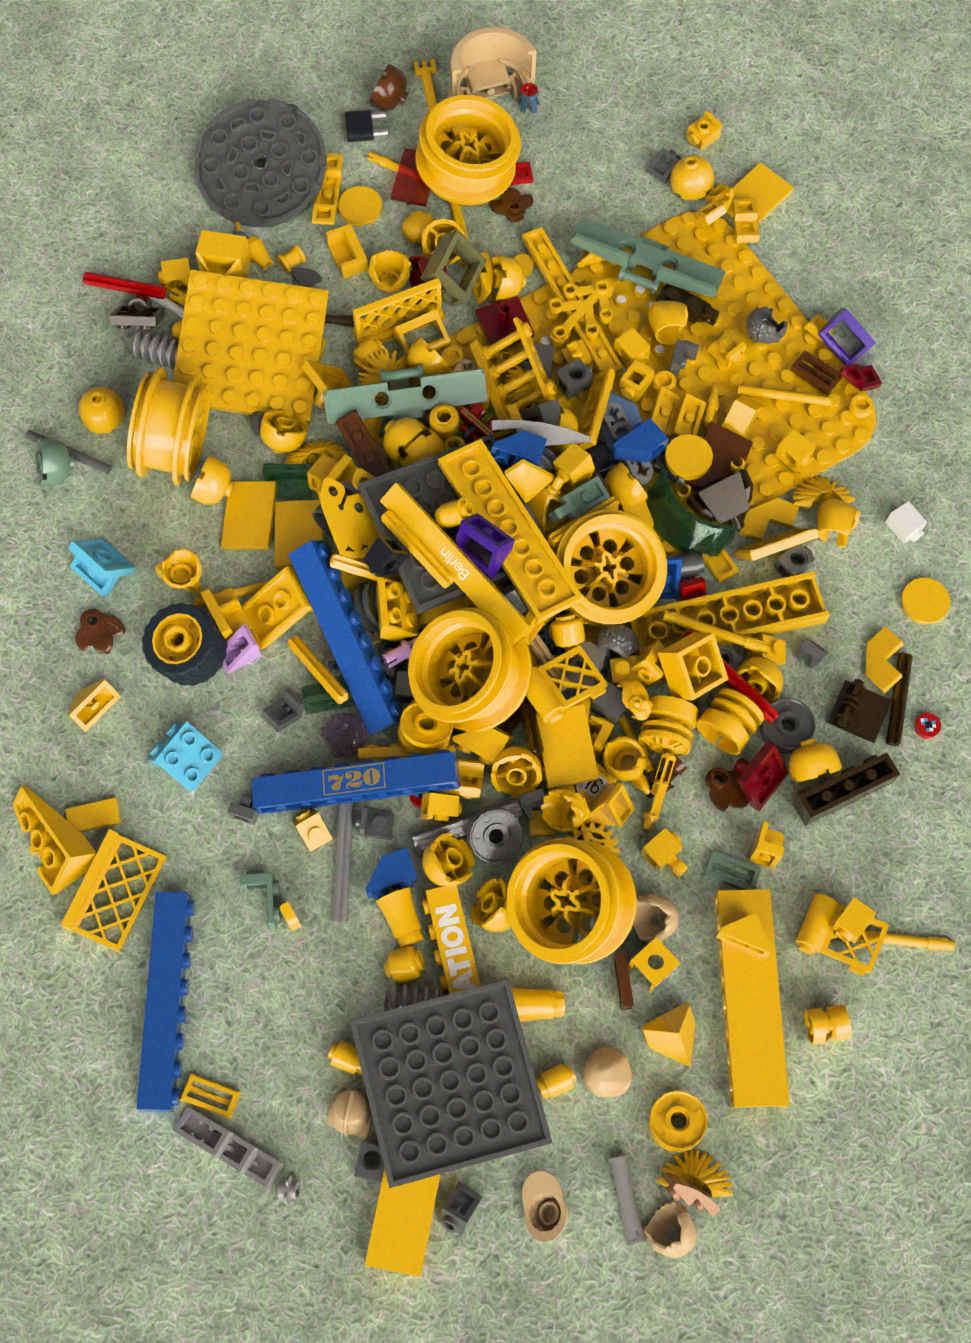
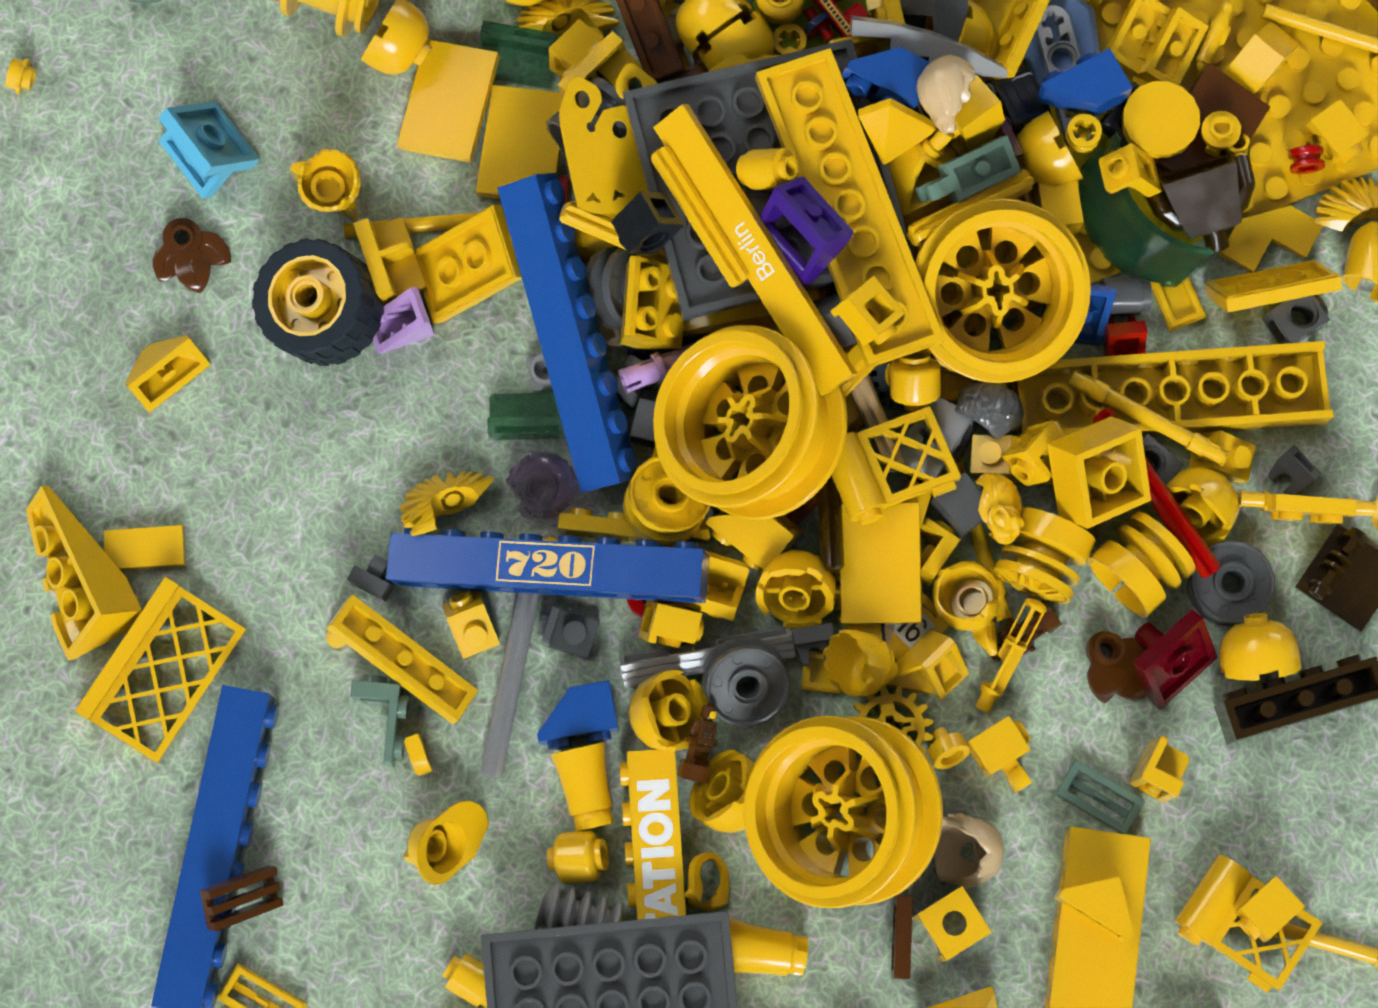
camera: 10 degrees right, 10 degrees up
(185, 754) = (295, 475): medium azure bracket -> none
(205, 1020) = (269, 890): none -> reddish brown tile
(269, 856) = (400, 658): none -> yellow piece
(281, 753) = (441, 498): none -> yellow hair
(284, 711) = (456, 431): dark grey bracket -> none
(317, 969) = (448, 842): none -> yellow piece
(318, 670) = (517, 375): yellow axle -> none
(472, 875) = (701, 738): none -> reddish brown piece
(484, 973) = (695, 888): none -> yellow piece
(533, 585) = (869, 312): none -> yellow brick
(555, 450) = (944, 89): none -> tan hair
(631, 856) = (947, 749): none -> yellow tile
(643, 464) = (1085, 121): none -> yellow bush
(676, 486) = (1130, 168): none -> yellow bracket
(726, 458) = (1220, 132): none -> yellow plate
(781, 468) = (1306, 159): none -> red bush
(831, 669) = (1320, 509): none -> yellow plate

